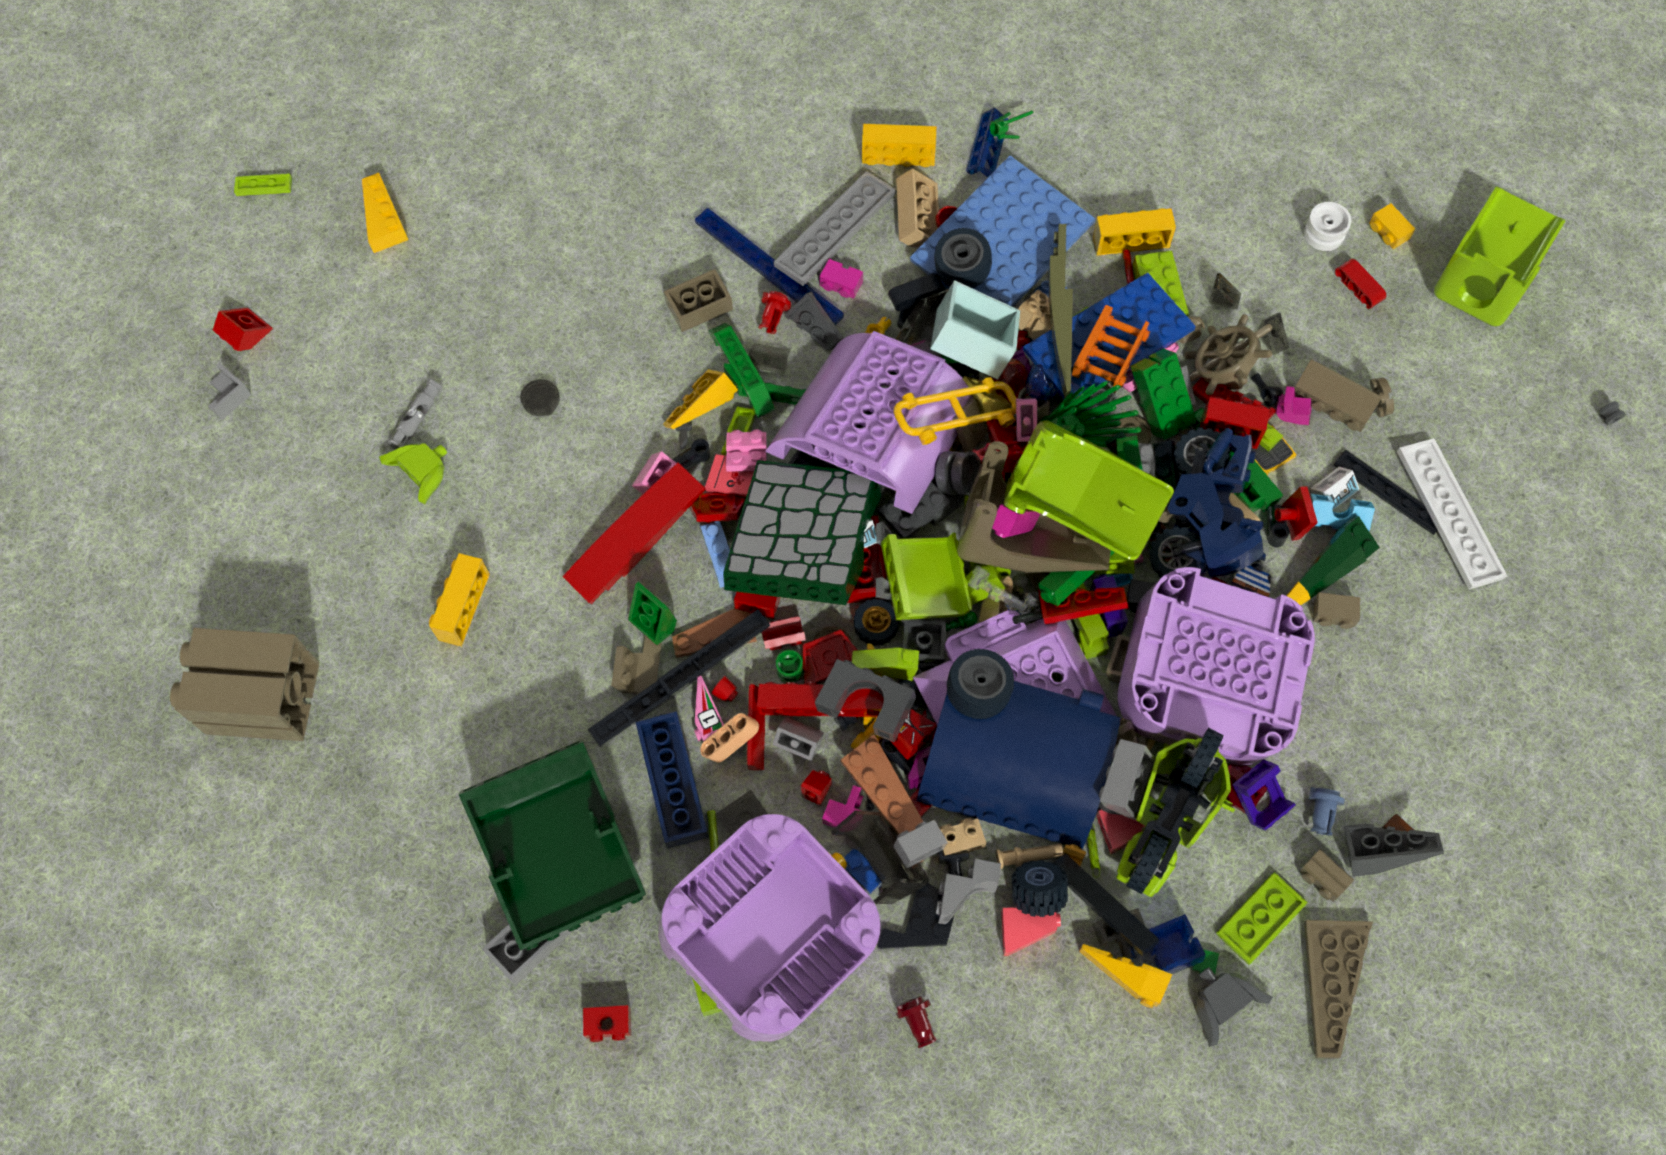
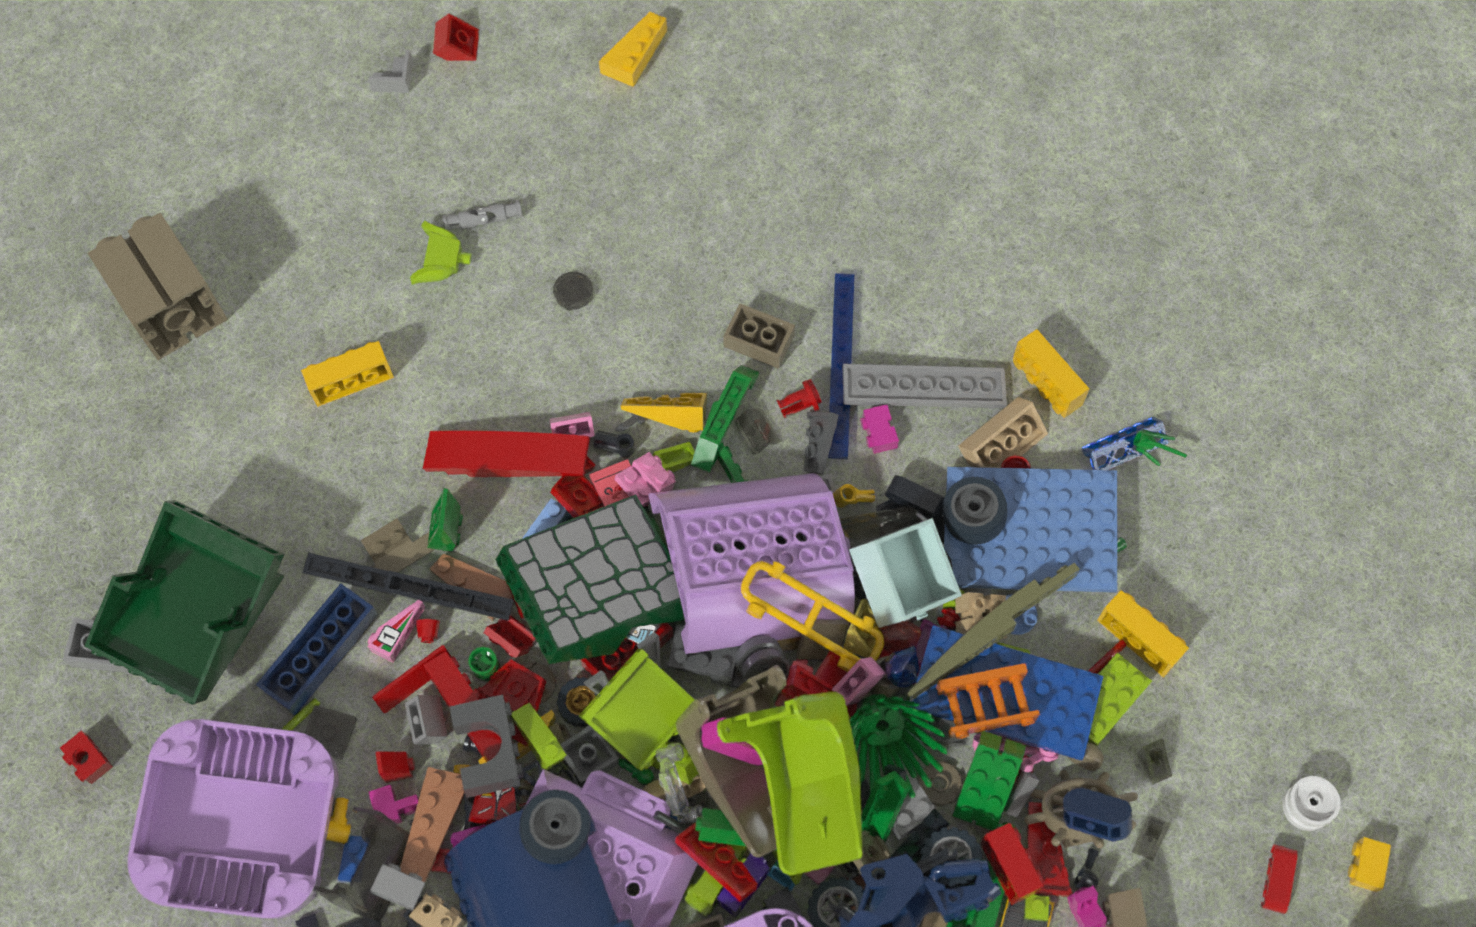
camera: 50 degrees right, 0 degrees up
(729, 738) = (383, 665): light nougat beam -> none
(1248, 339) = (1097, 814): none -> dark blue brick

